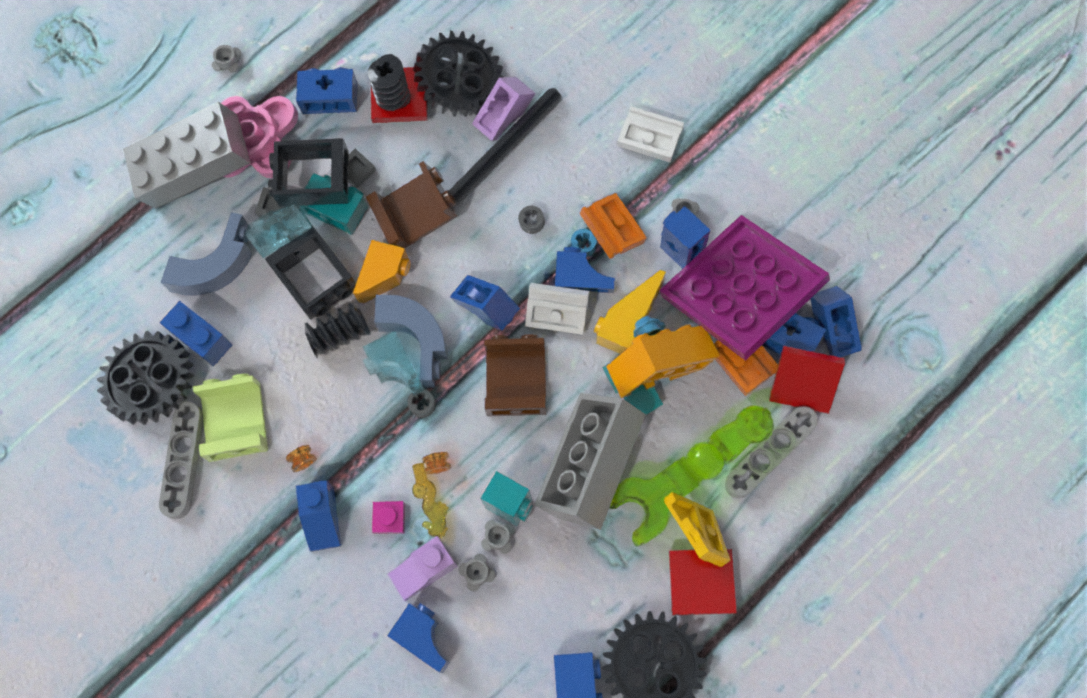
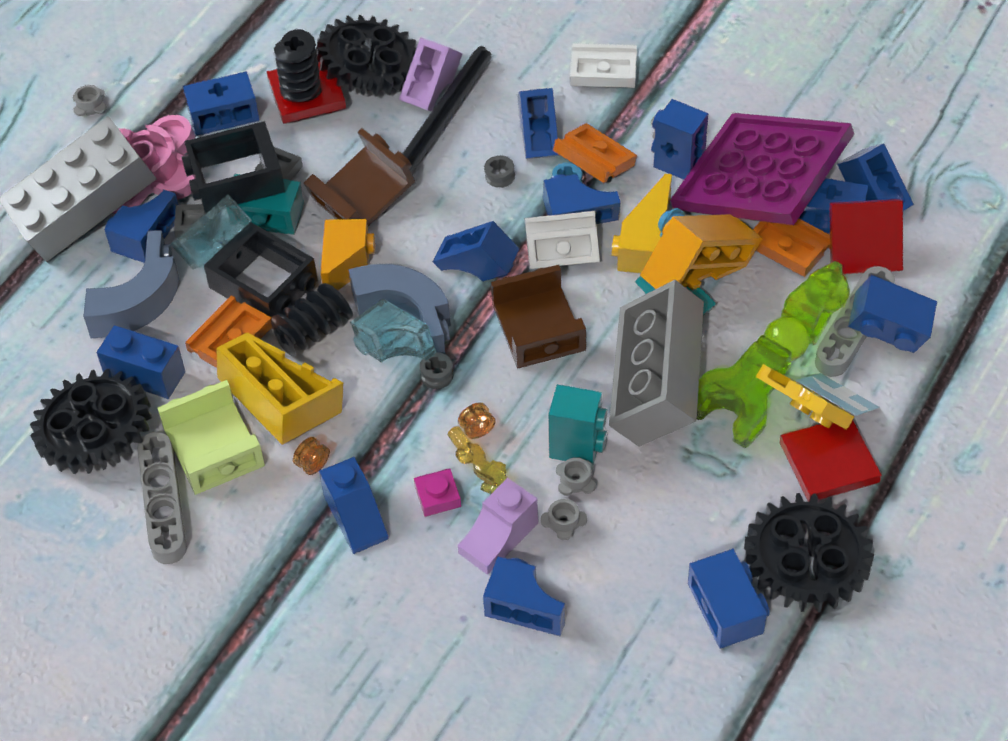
camera: 20 degrees left, 20 degrees down
(235, 198) = (130, 225): none -> blue arch
(271, 323) = (224, 325): none -> orange plate
(291, 393) = (276, 390): none -> yellow wedge
(575, 182) = (538, 122): none -> blue arch
(728, 526) = (837, 394): none -> medium azure sticker
(800, 464) = (892, 314): none -> blue brick

